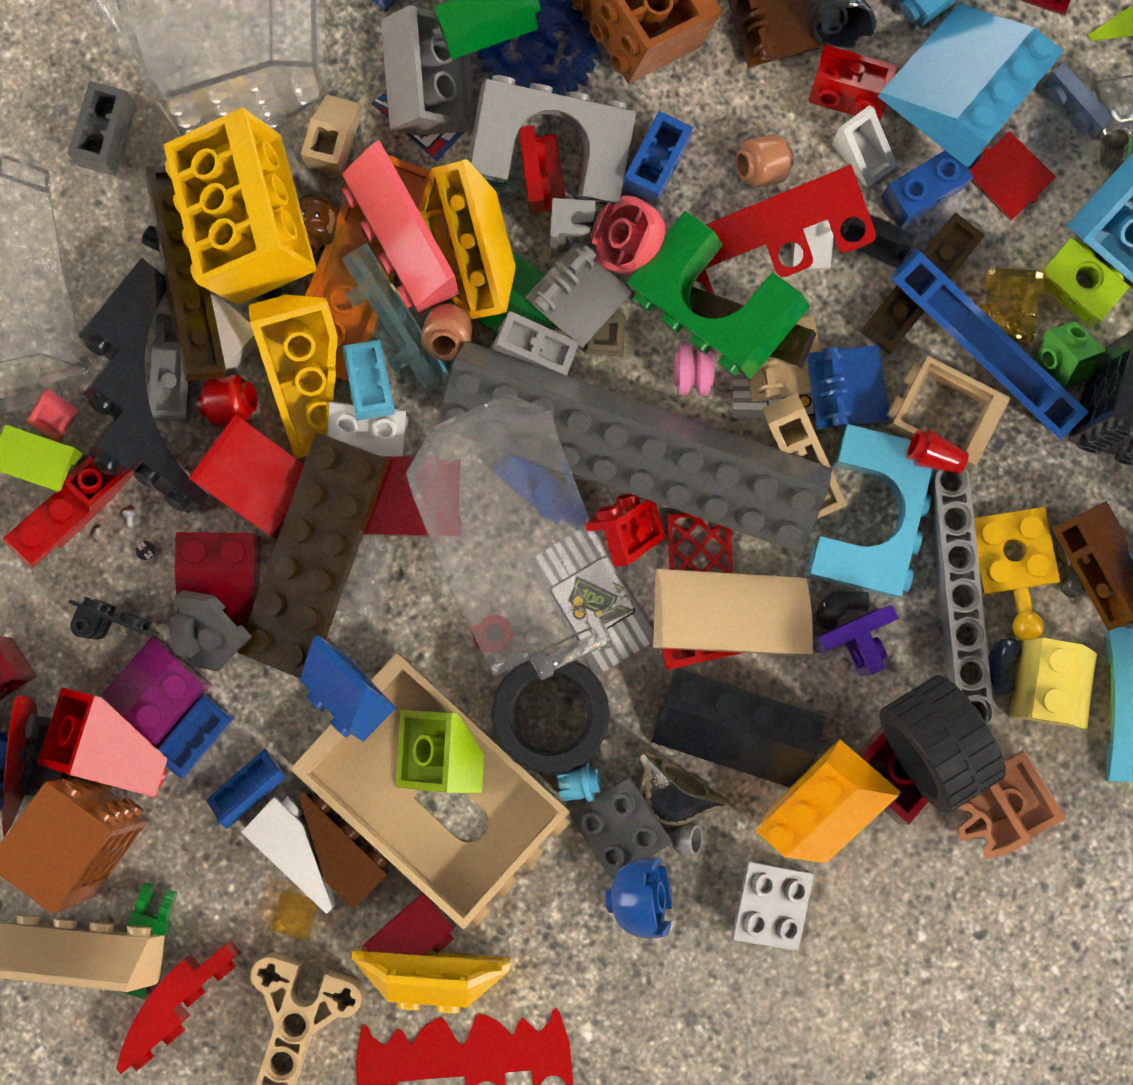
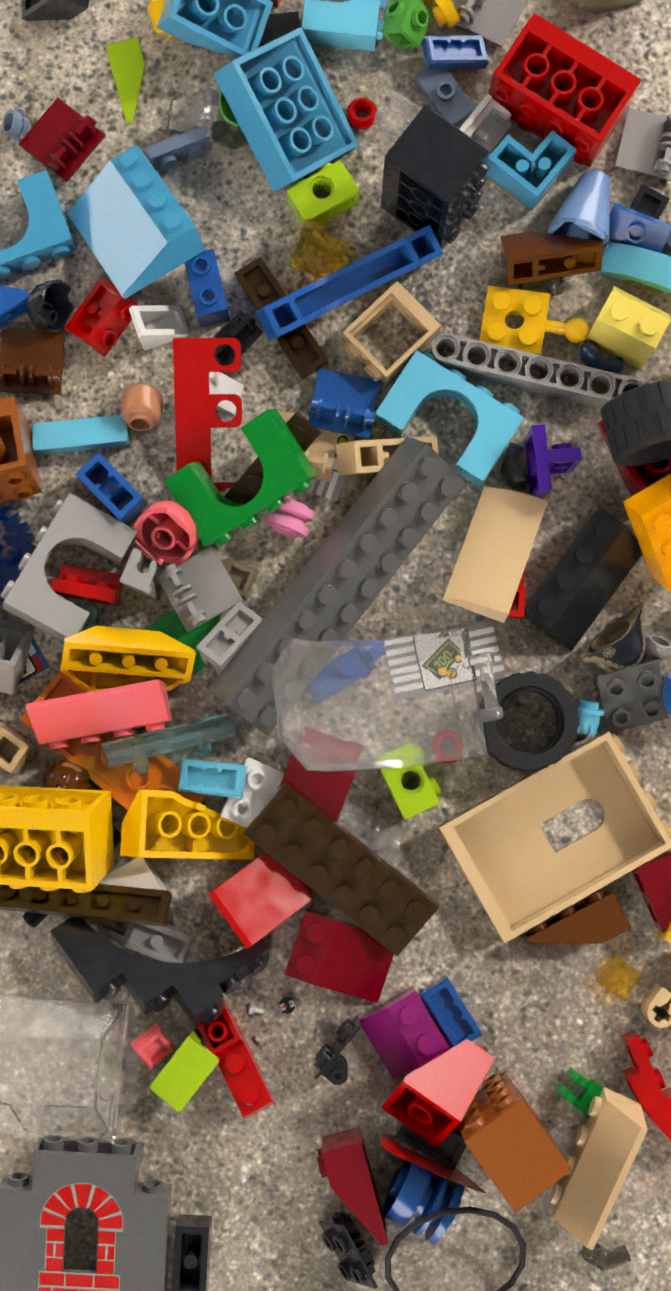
camera: 70 degrees left, 0 degrees up
(204, 631) = (372, 977): dark grey plate -> none
(226, 397) = (189, 898): red head -> none
(246, 788) = (506, 984): blue plate -> none
(287, 842) = (560, 964): white slope -> none
(344, 691) = (459, 878): blue slope -> none
(417, 614) = (416, 800): none -> lime brick
(438, 754) = (529, 821): lime slope -> none
(446, 331) = (194, 703): nougat head -> none
(630, 527) = (400, 609): red bracket -> none
(671, 521) = (425, 583): red window -> none
(708, 104) = (80, 435): none -> medium azure slope
(936, 452) = (421, 352): red cone -> none
(1010, 175) = (220, 220): red piece -> none
(1069, 354) = (376, 224): bright green brick -> none

